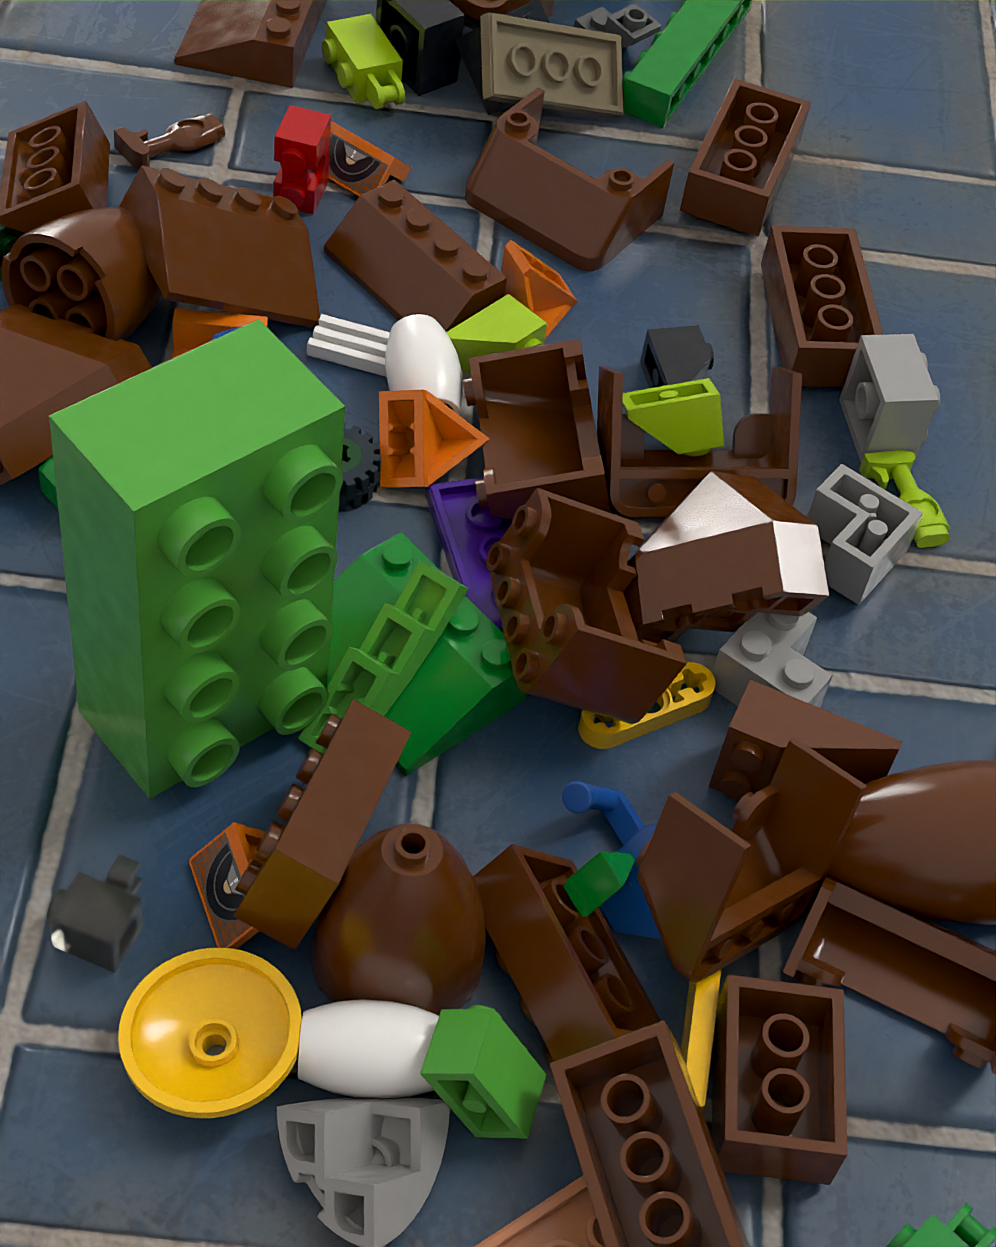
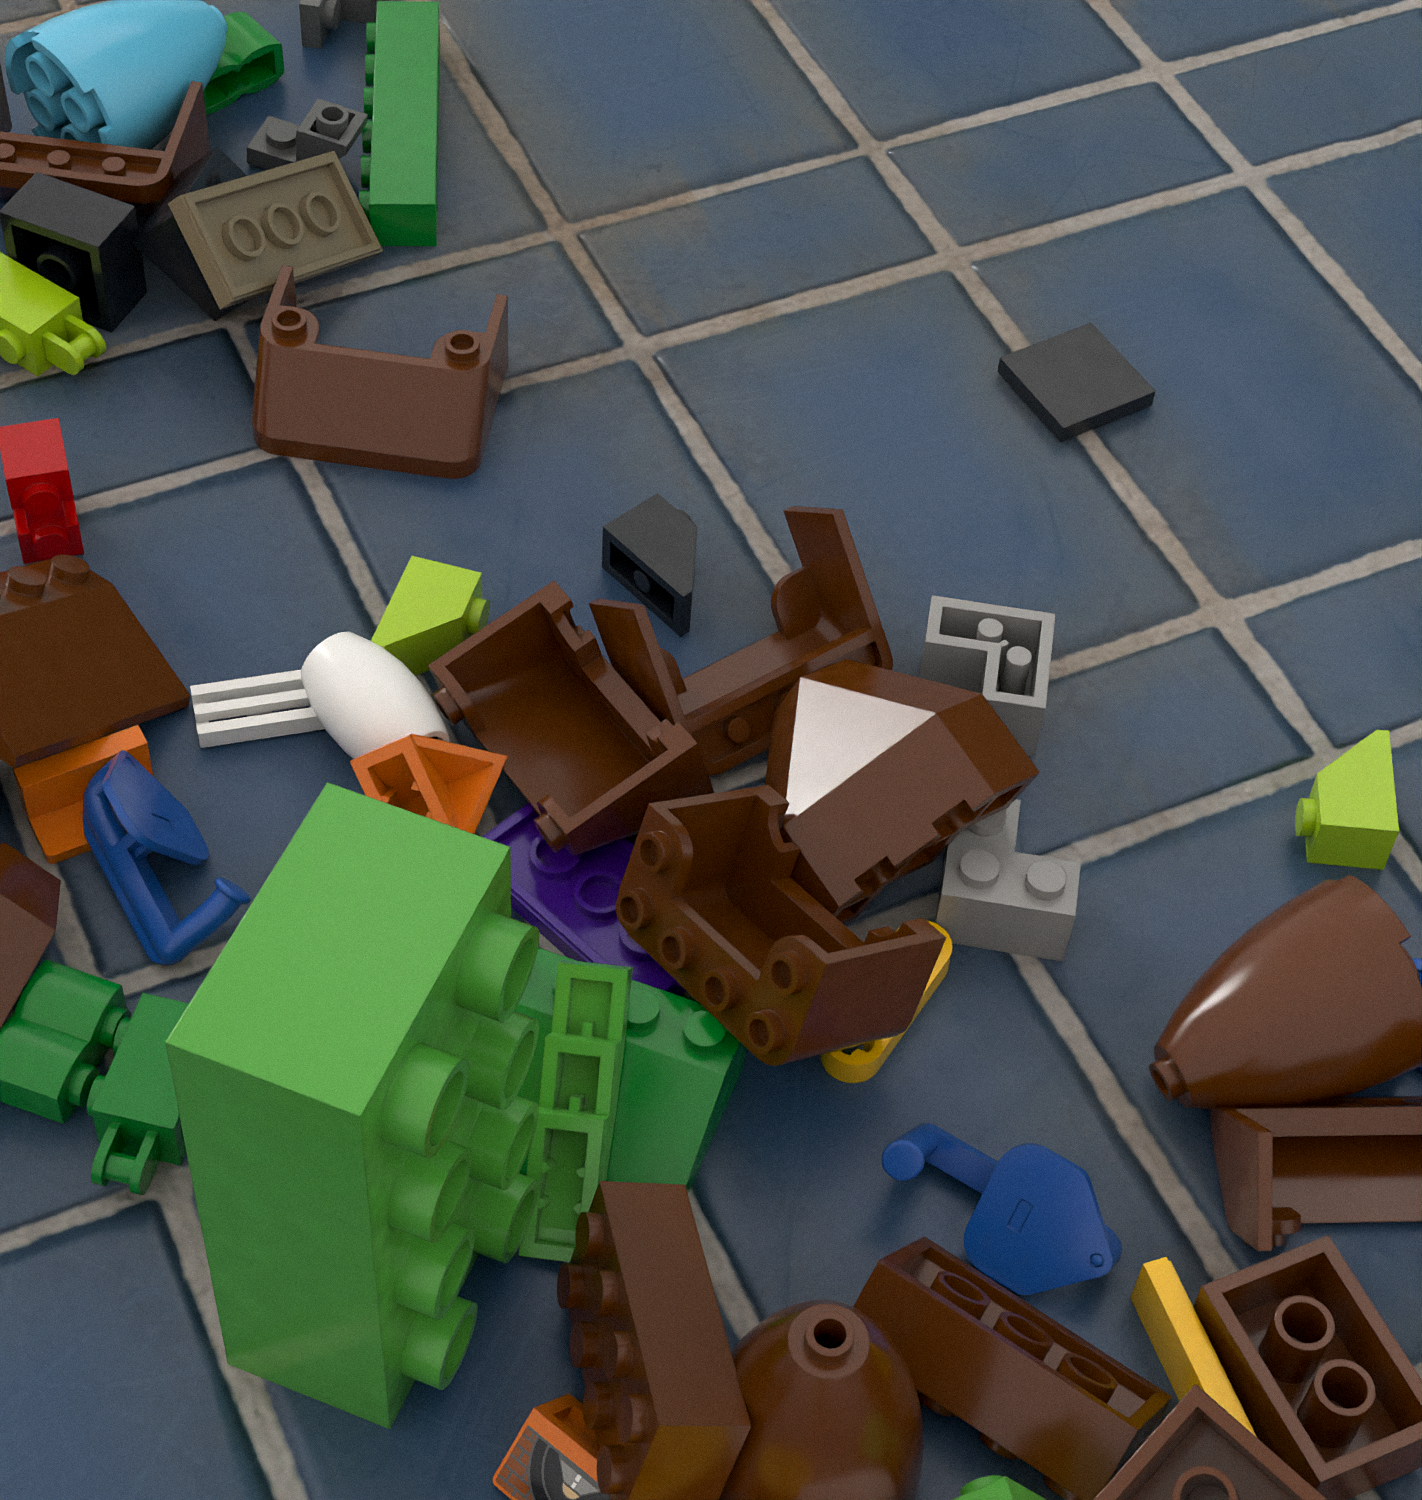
camera: 25 degrees left, 0 degrees up
(360, 164) = (112, 461): panel -> none
(412, 259) = (263, 564): reddish brown slope -> none
(536, 285) = (424, 528): orange slope -> none
(598, 880) = (990, 1251): green slope -> none
(679, 415) = (713, 617): lime slope -> none
(738, 888) = (1148, 1148): reddish brown windscreen -> none
(745, 157) = (570, 247): reddish brown brick -> none
(767, 723) = (1096, 977): reddish brown slope -> none
(818, 300) = (776, 402): reddish brown brick -> none
(889, 395) = (924, 487): light grey brick -> none
(897, 465) = (970, 562): lime piece -> none

